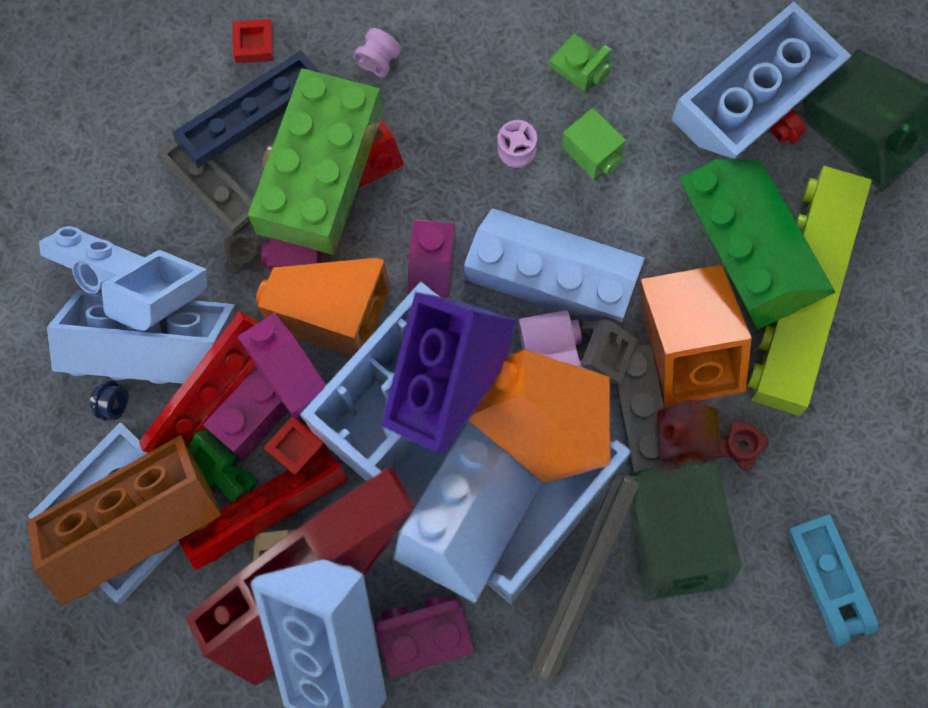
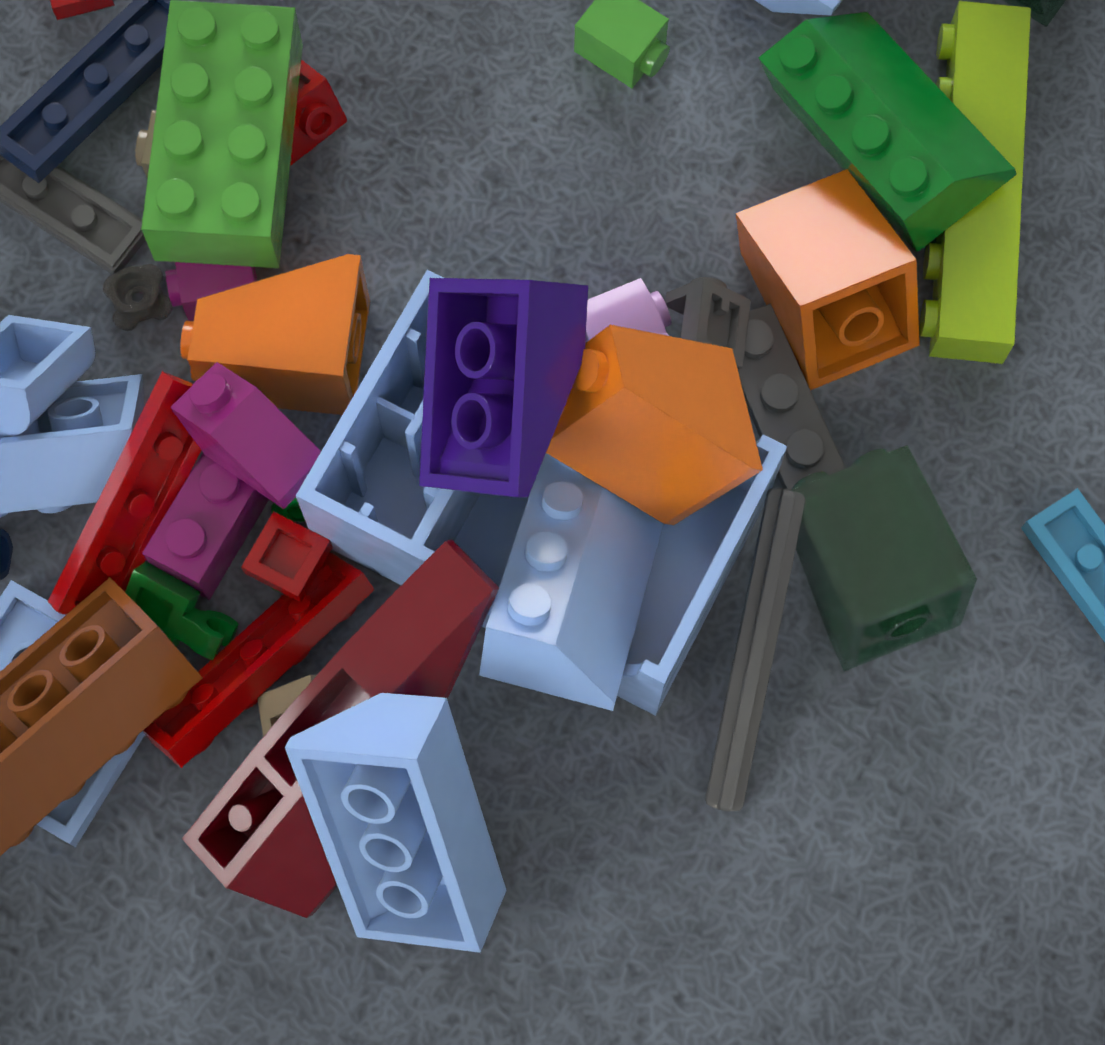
camera: 20 degrees left, 0 degrees up
(423, 636) = (540, 788): magenta bracket -> none
(432, 256) = (420, 237): magenta slope -> none
(518, 134) = (506, 43): lavender wheel -> none
(552, 267) = (601, 225): light blue slope -> none
(689, 433) = (854, 415): clear red brick -> none
(755, 443) = (945, 407): dark red plate -> none

